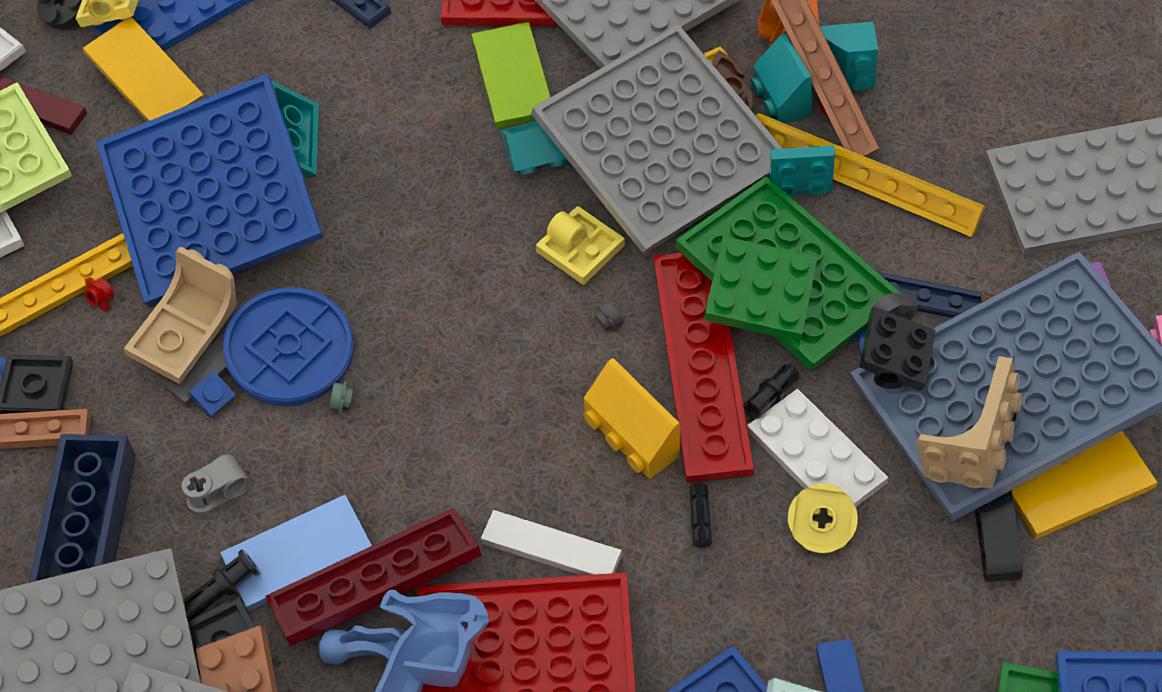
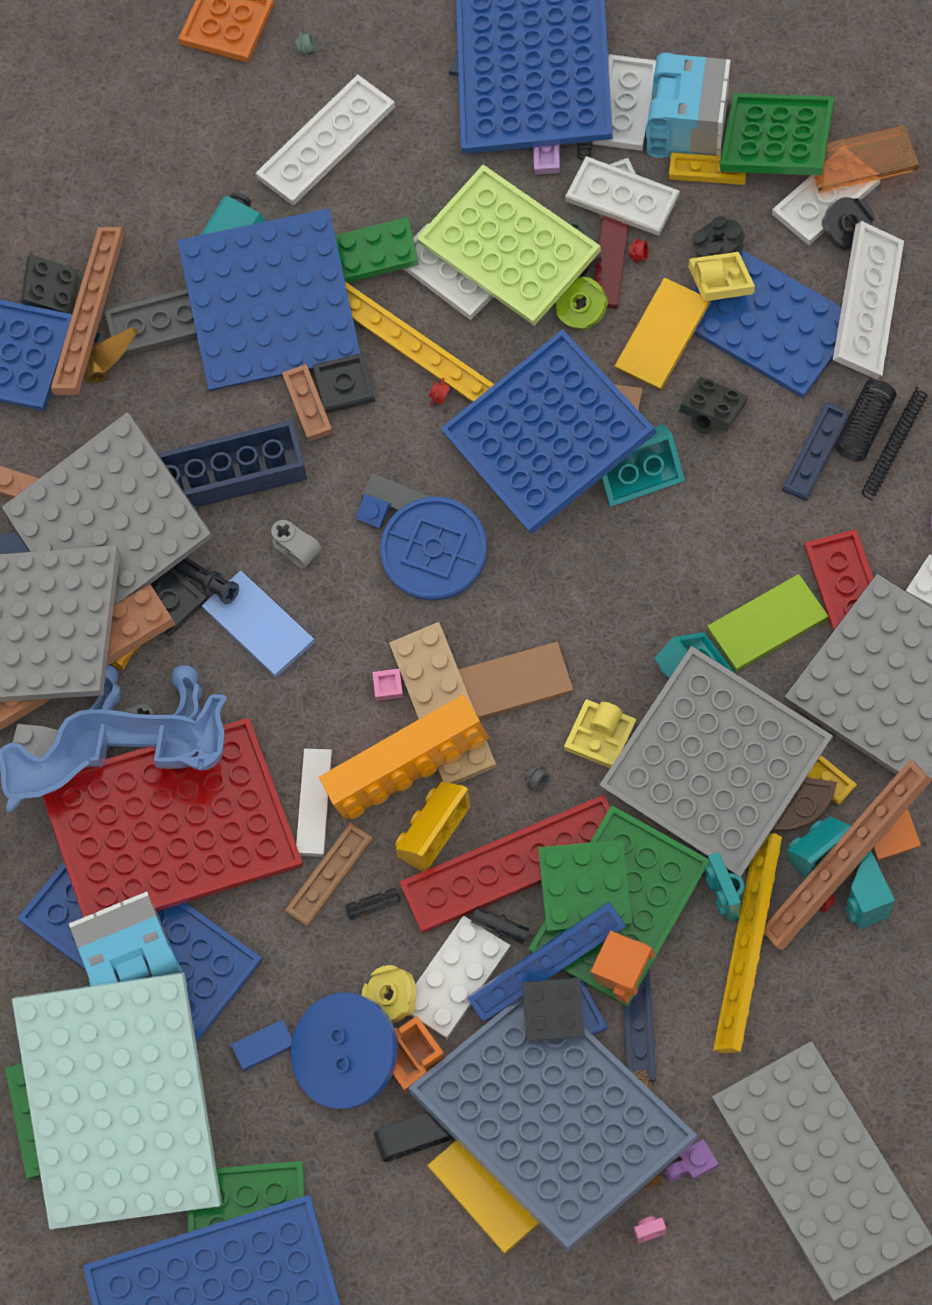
camera: 75 degrees right, 10 degrees up
(32, 73) = (638, 250): none -> red plate
(75, 119) = (591, 313): none -> lime plate
(186, 317) = (421, 463): tan bracket -> none
(243, 52) = (712, 405): none -> pearl dark grey plate
(340, 396) = (399, 603): sand green plate -> none
(365, 577) = (247, 683): dark red plate -> none
(436, 432) = (387, 684): none -> bright pink plate
(482, 384) = (433, 682): none -> tan plate
(483, 313) = (517, 680): none -> medium nougat tile
(547, 420) = (404, 758): none -> light orange brick
(648, 554) = (328, 875): none -> medium nougat tile
(837, 346) = (546, 960): none -> blue plate
(869, 267) = (621, 965): none -> orange plate
(882, 577) = (344, 1050): none -> blue plate
(897, 304) = (603, 1000): dark grey beam -> none
(904, 509) = (416, 1053): none -> orange plate
(979, 452) = (476, 1095): tan bracket -> none

